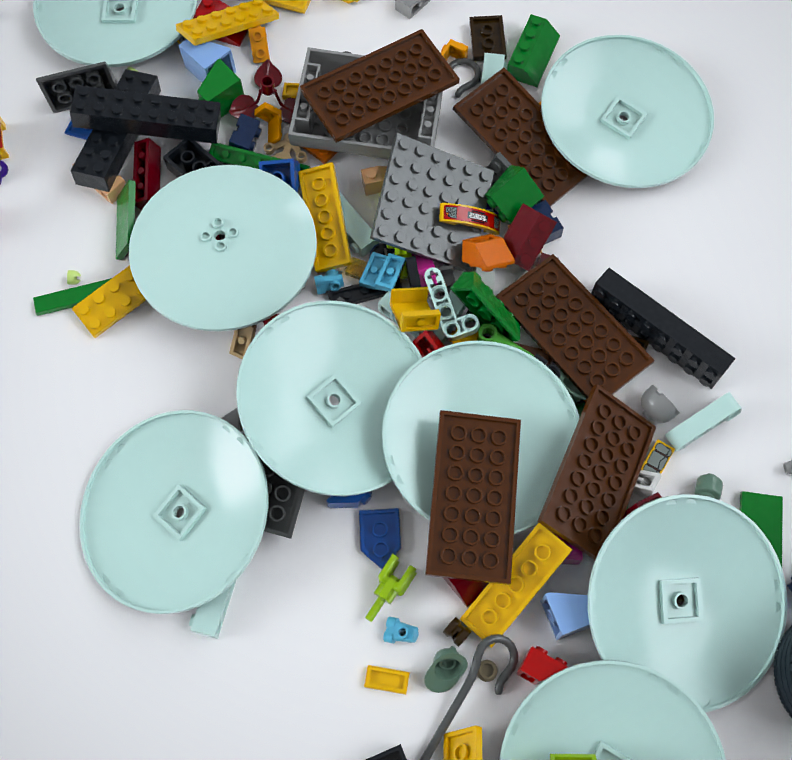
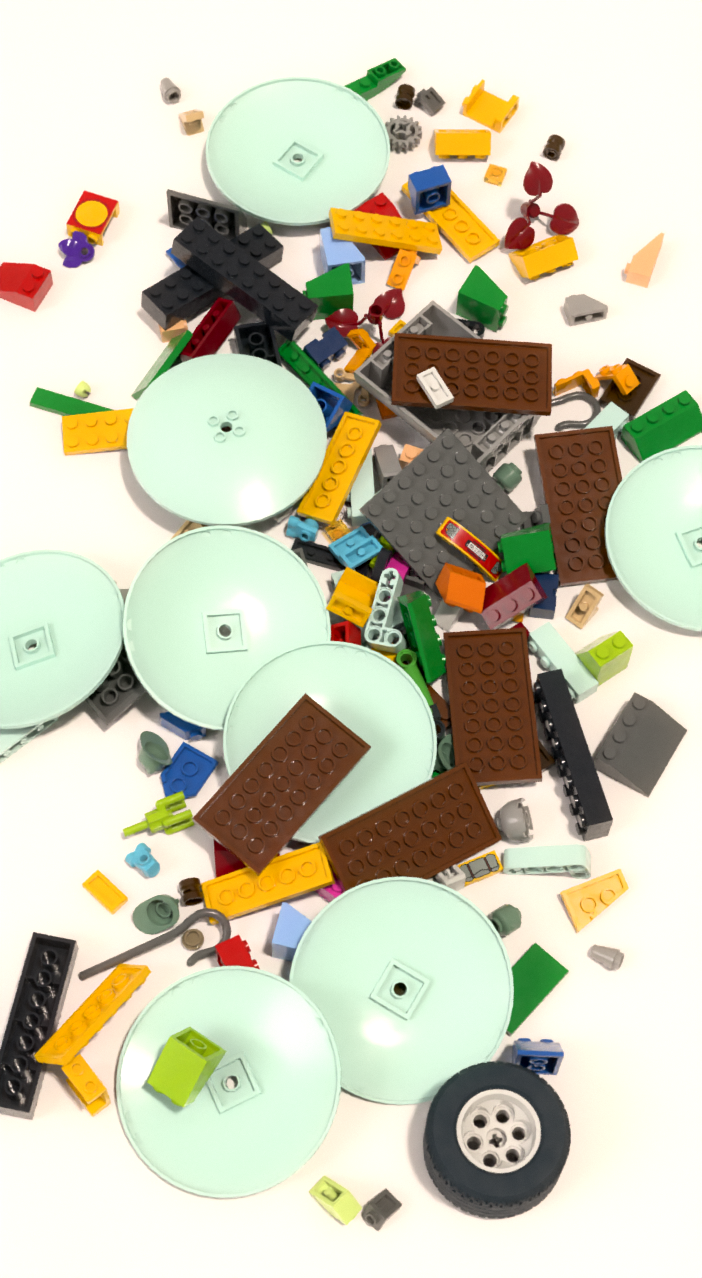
camera: 30 degrees right, 5 degrees down
(16, 25) = (192, 121): none -> tan slope
(339, 31) = (482, 300): none -> green slope
(343, 535) = (154, 752): none -> sand green piece
(360, 196) = (386, 463): none -> light grey slope
(363, 109) = (435, 388): none -> white plate
(452, 146) = (508, 476): none -> sand green head
(477, 28) = (622, 376): none -> light orange bracket
(579, 212) = (585, 606): none -> tan slope
(592, 261) = (557, 654): none -> light aqua brick
(622, 239) = (606, 655): none -> lime slope
(696, 289) = (640, 745): none -> dark grey slope
(753, 427) = (593, 897): none -> yellow wing

